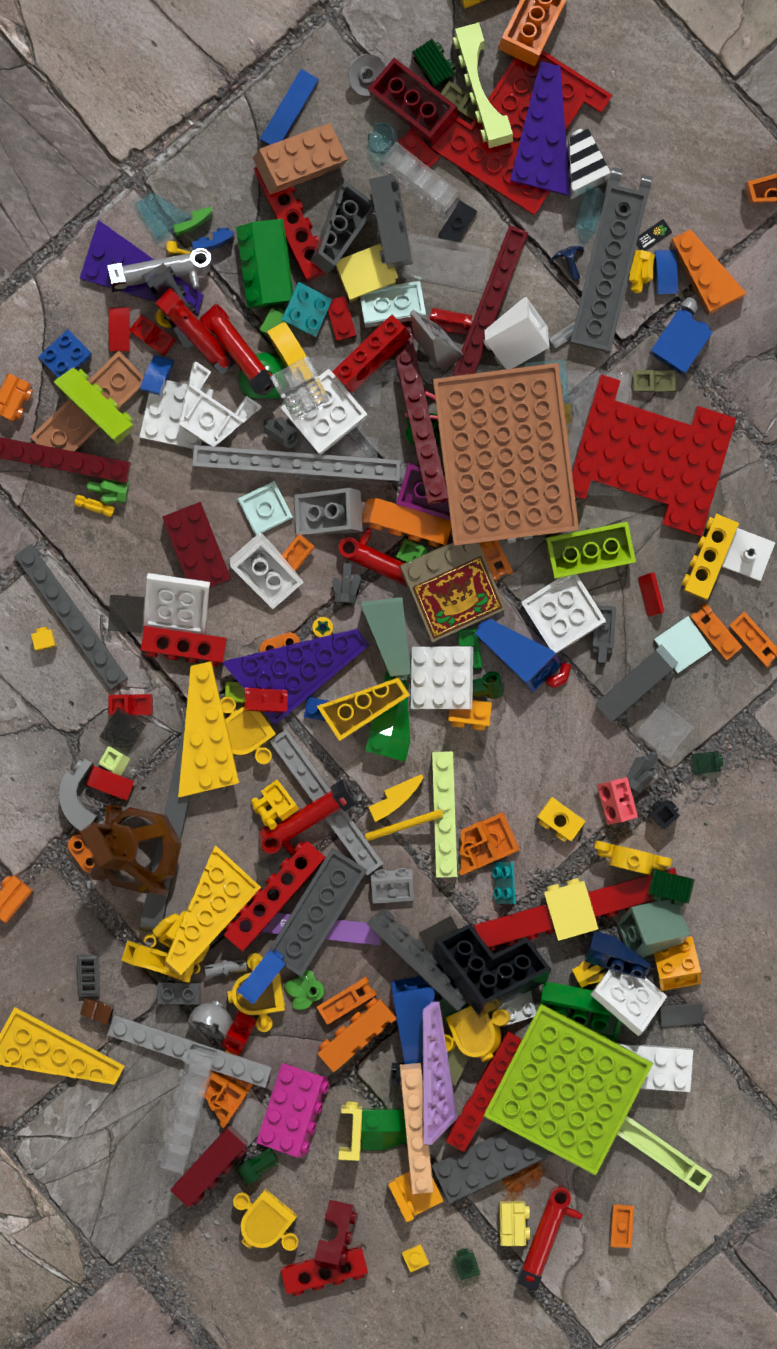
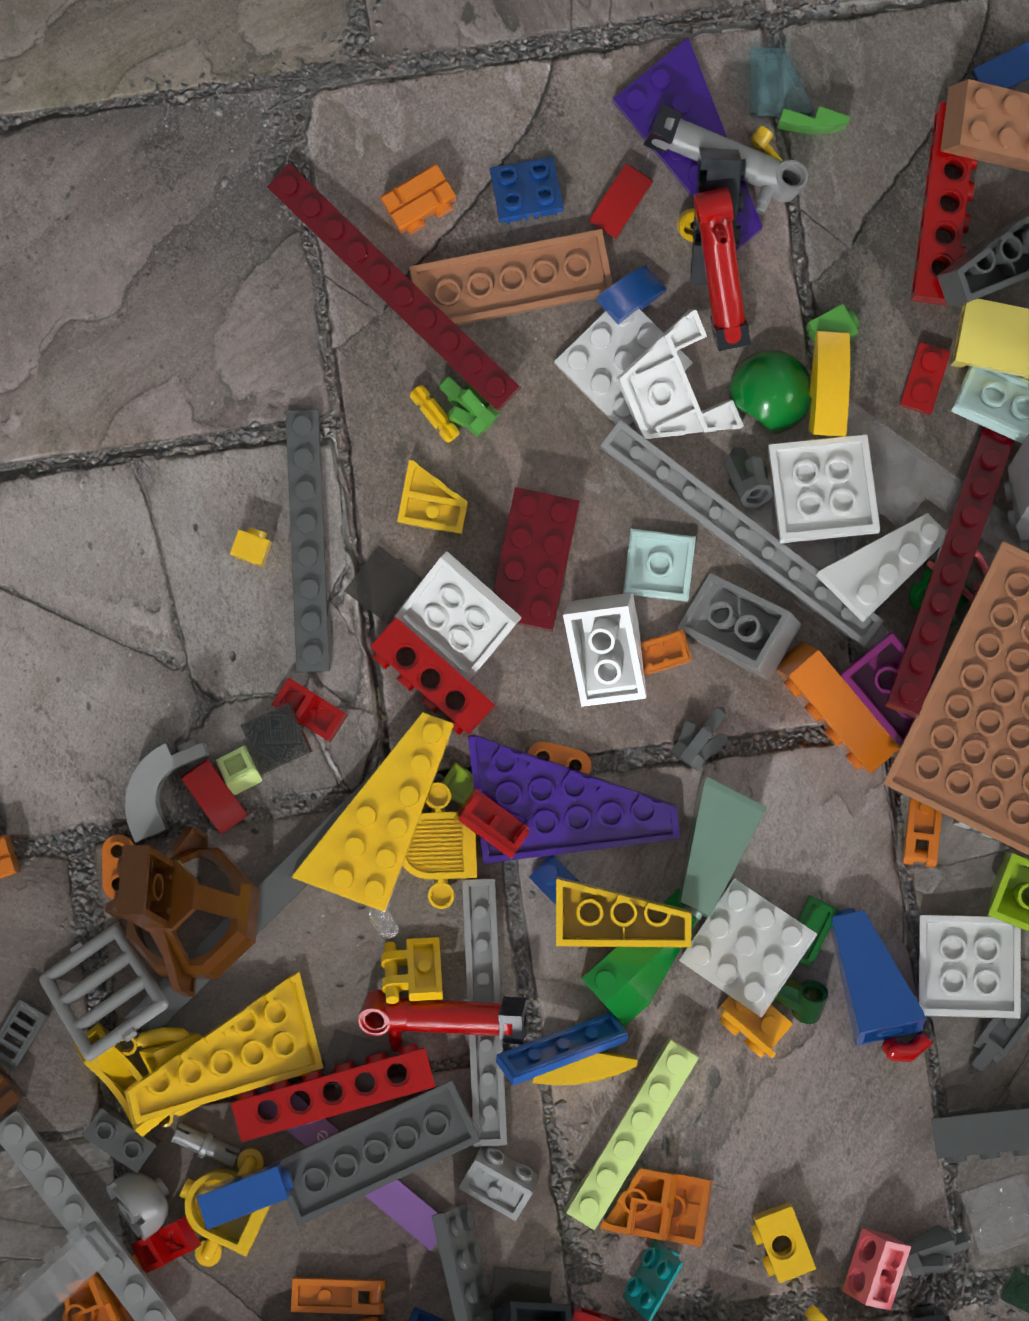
camera: 35 degrees right, 0 degrees up
(95, 405) = (523, 280): lime slope -> none
(119, 896) = (63, 1001): none -> light grey bar
(123, 554) = (430, 503): none -> yellow wing
(152, 335) = (659, 238): red slope -> none
(218, 322) = (759, 279): red piece -> none
(220, 238) = (835, 167): blue slope -> none
(242, 790) = (384, 922): none -> clear arm
(265, 263) = (873, 239): green slope -> none
(300, 389) = (815, 437): clear brick -> none
(301, 990) = (286, 1242): bright green plate -> none
(306, 309) = (888, 336): teal hinge -> none
(322, 627) = (632, 774): yellow tile -> none
(372, 353) = (939, 452): red brick -> none
(372, 558) = (772, 749): red piece -> none
(378, 793) = (561, 1048): none -> blue tile
(382, 432) = (880, 568): none -> white wing
(404, 825) = (569, 1112): yellow bar -> none
(410, 551) = (818, 757): bright green bracket -> none
(451, 588) = (839, 837): plate -> none

